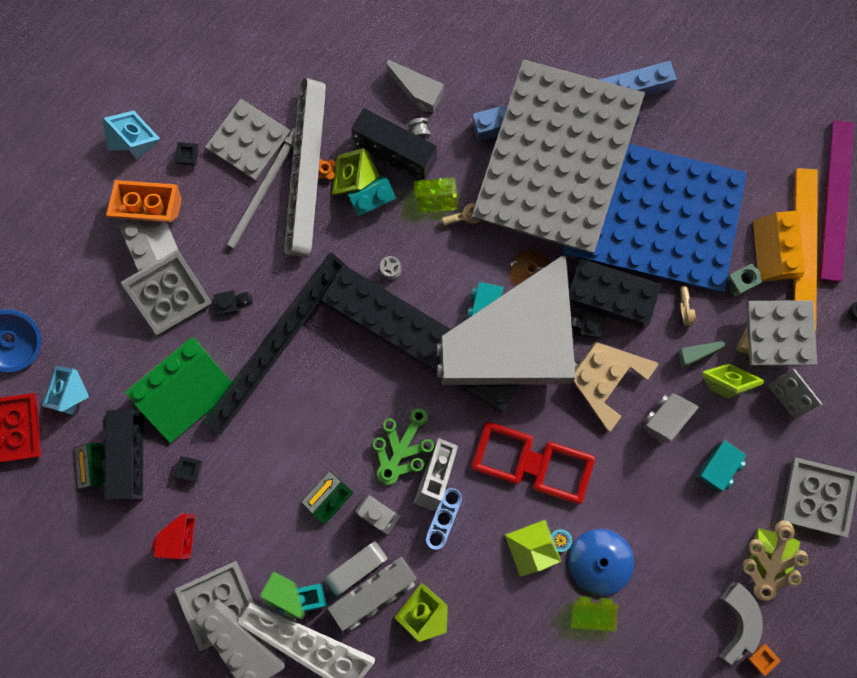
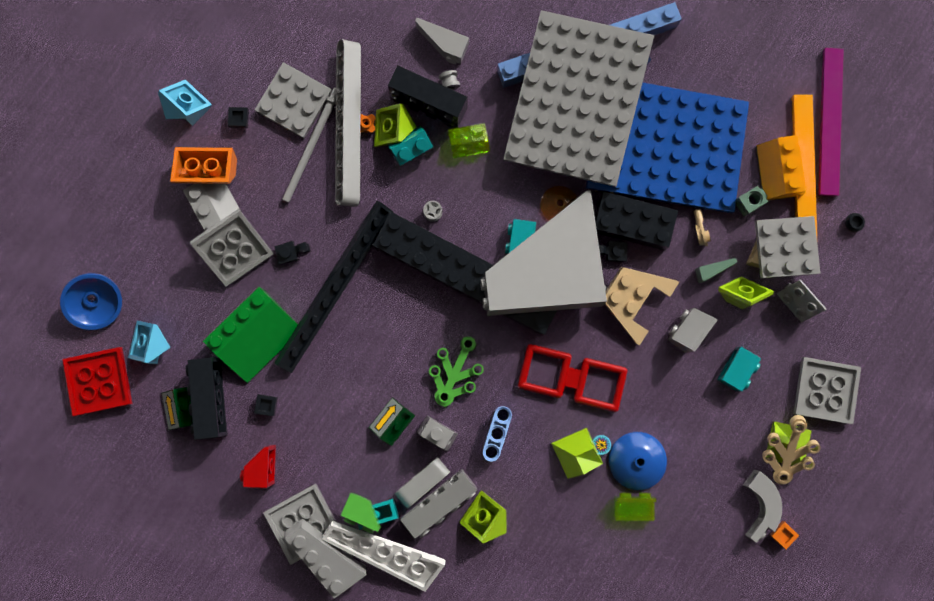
camera: 10 degrees left, 5 degrees up
(436, 475) = (487, 395): light grey slope -> none
(465, 216) = (497, 158): tan plate -> none

